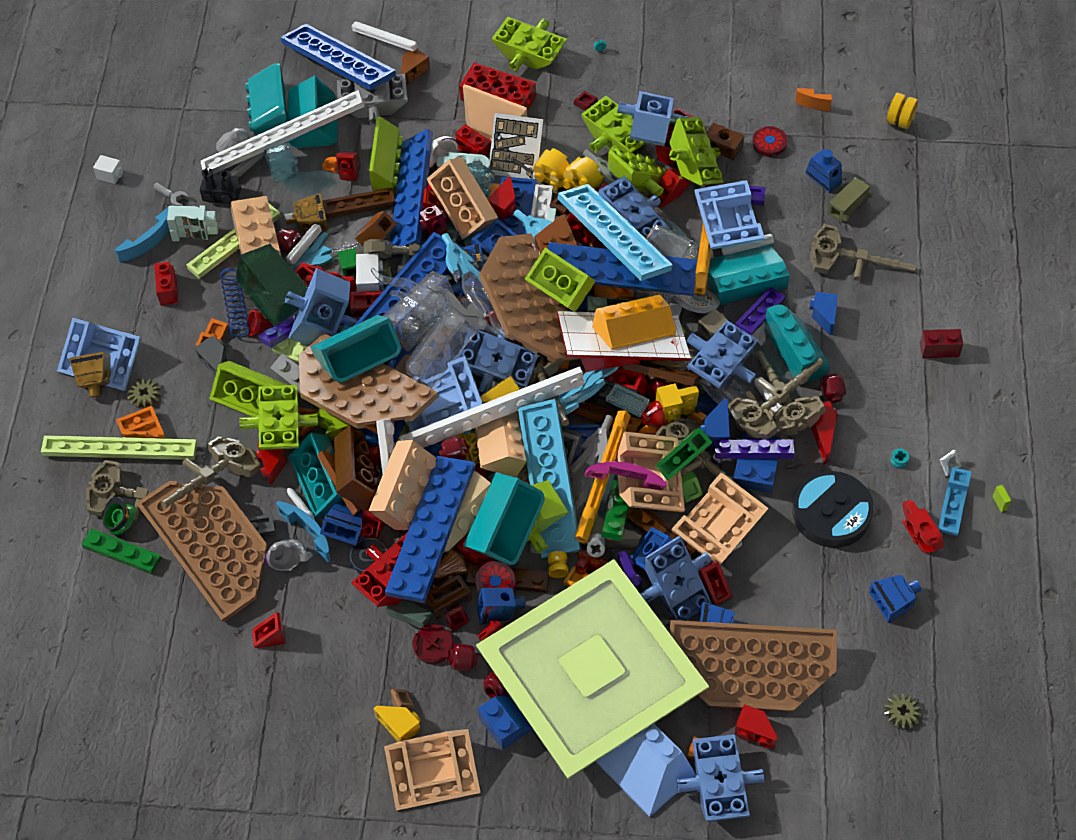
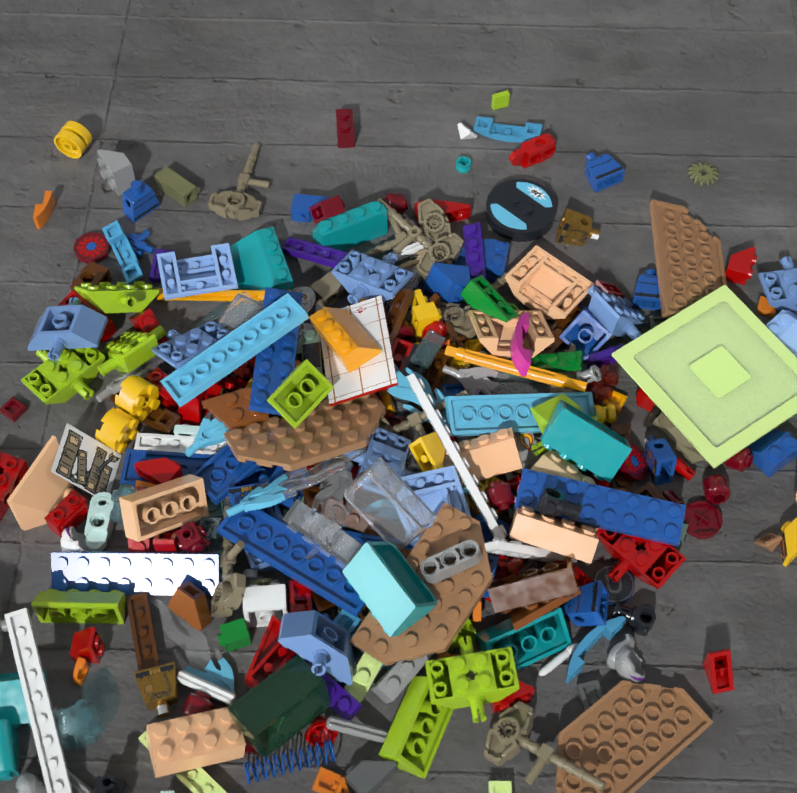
camera: 95 degrees left, 0 degrees up
(251, 343) = (356, 729): none -> light grey axle
(331, 566) = (633, 617): none -> black connector
(371, 388) = (456, 552): none -> light grey beam
(424, 481) = (554, 503): none -> black connector
(654, 426) = (456, 340): none -> reddish brown piece
(760, 166) = (124, 252): none -> dark azure slope
(779, 173) = (138, 244): none -> blue piece
(800, 556) = (575, 229): none -> pearl gold torso
(809, 317) = (327, 209): none -> dark red brick
(857, 147) = (116, 170): none -> light grey slope

